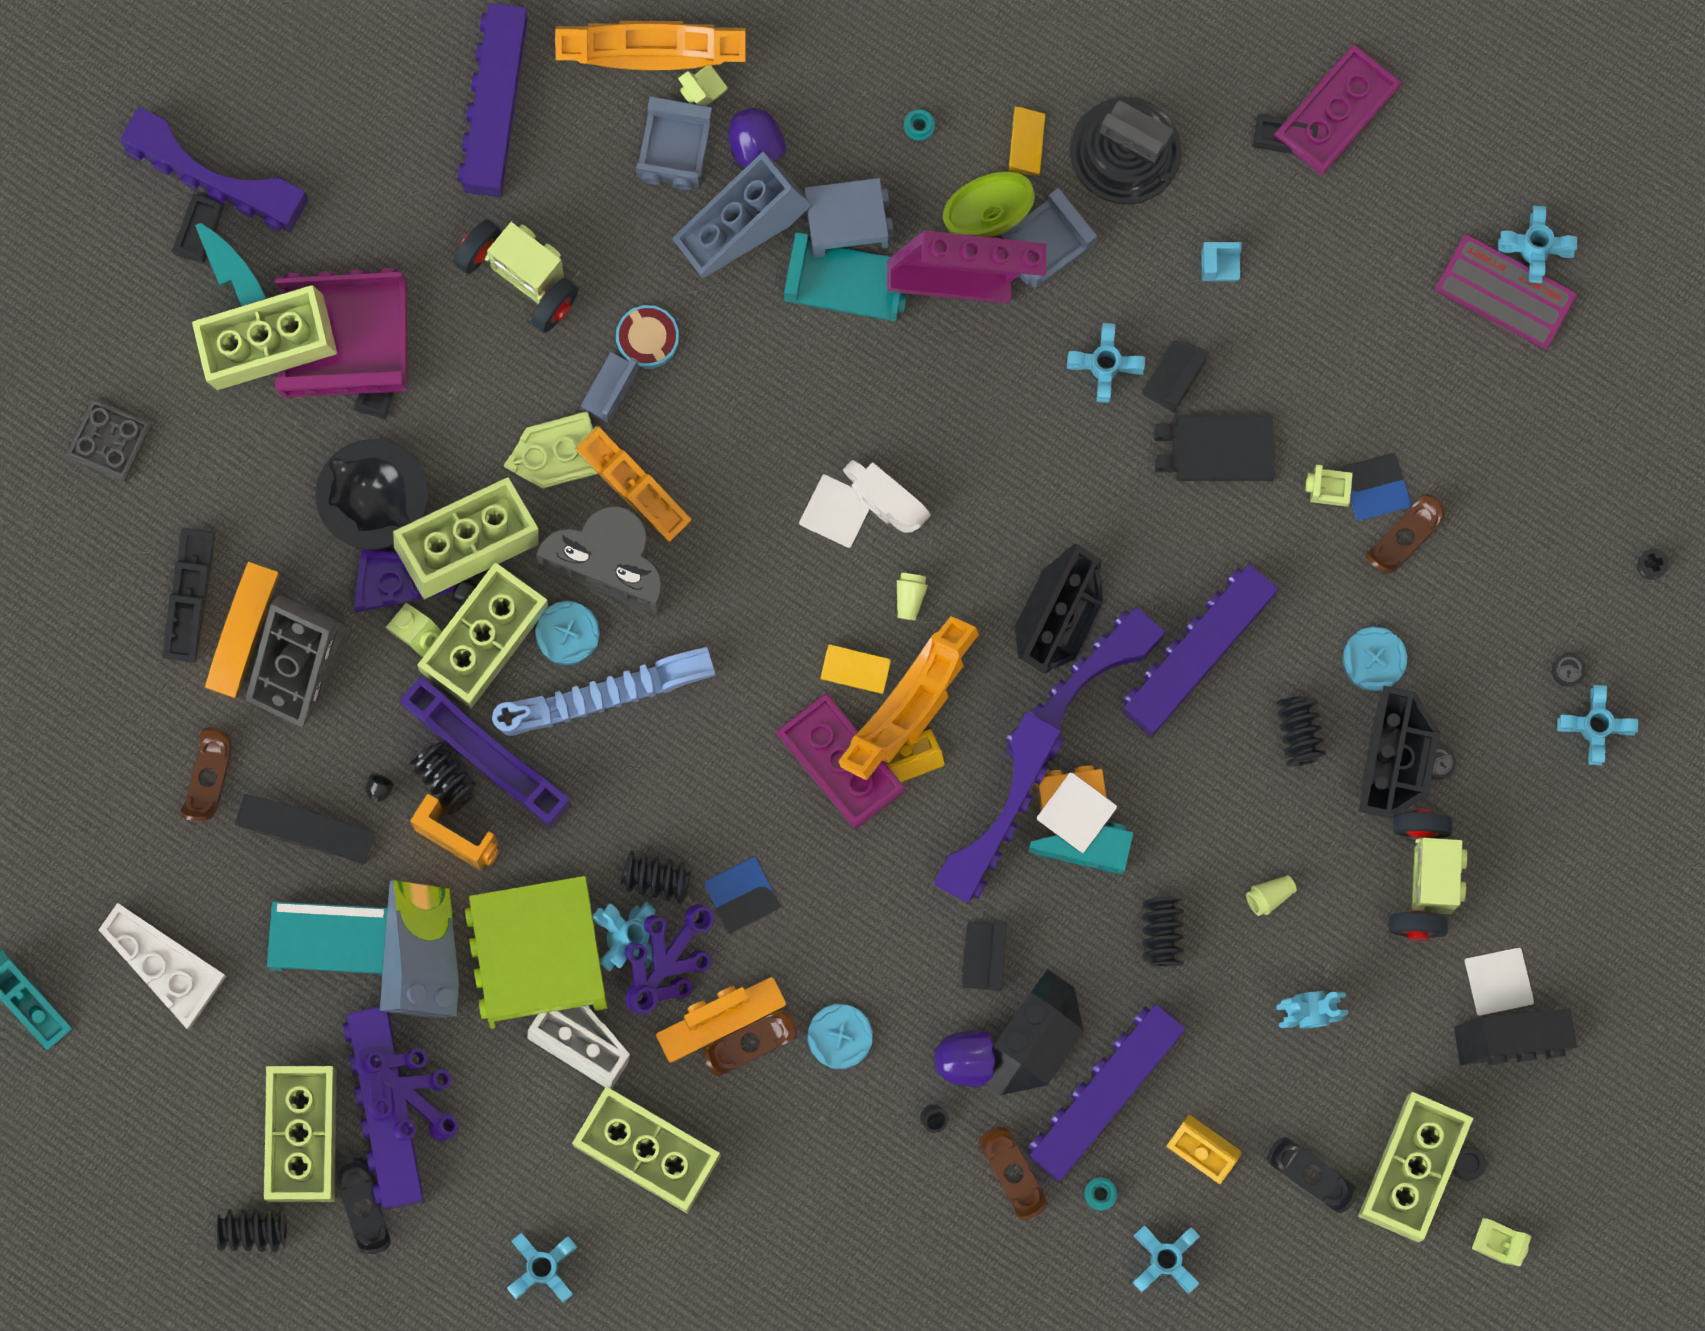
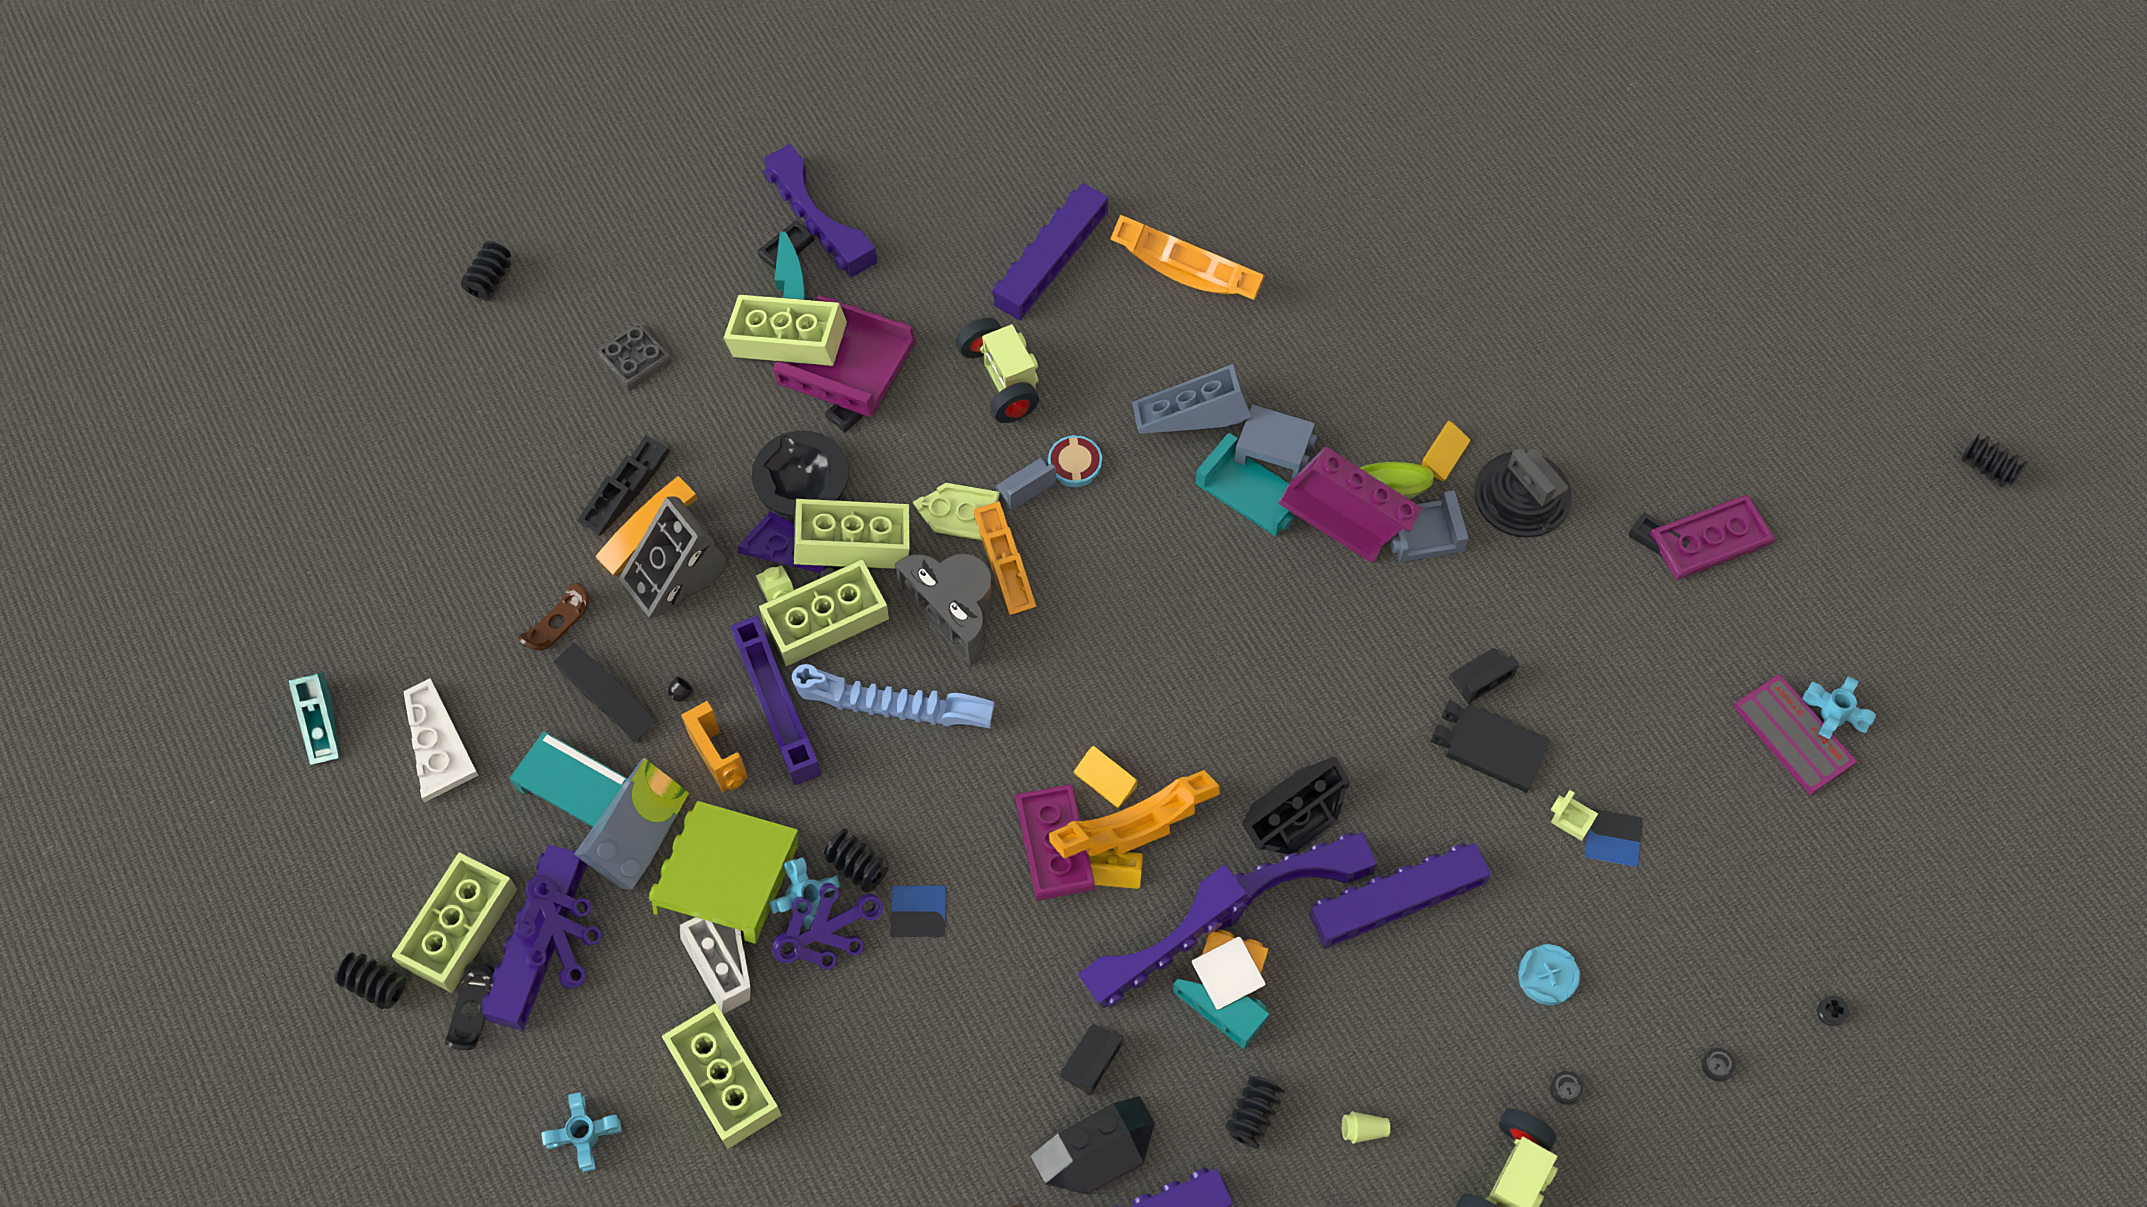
camera: 30 degrees right, 15 degrees down
(443, 778) = (733, 705): black piece -> none
(567, 633) = (892, 645): medium azure tile -> none
(674, 143) = (1170, 336): sand blue panel -> none
(703, 86) = (1212, 308): yellowish green bracket -> none
(720, 1018) = (844, 998): light orange bracket -> none
(753, 133) = (1234, 350): dark purple hair -> none
(772, 1032) = (835, 1032): reddish brown piece -> none
(834, 511) = (1154, 653): white sticker -> none
(840, 1036) = (935, 1065): medium azure tile -> none
(886, 497) = (1199, 657): white piece -> none
(910, 594) = (1179, 740): yellowish green cone -> none
(919, 116) = (1366, 398): teal plate -> none
(934, 1122) = (976, 1178): black hinge -> none
(966, 1058) = (1029, 1135): dark purple hair -> none
(1080, 360) = (1409, 627): medium azure pin -> none
(1221, 261) = (1562, 604): medium azure panel -> none
(1300, 730) = (1455, 1000): black piece -> none
(1398, 754) = (1534, 1059): black wedge -> none
(1420, 520) = (1640, 880): reddish brown piece -> none
(1598, 710) = (1702, 1110): medium azure pin -> none

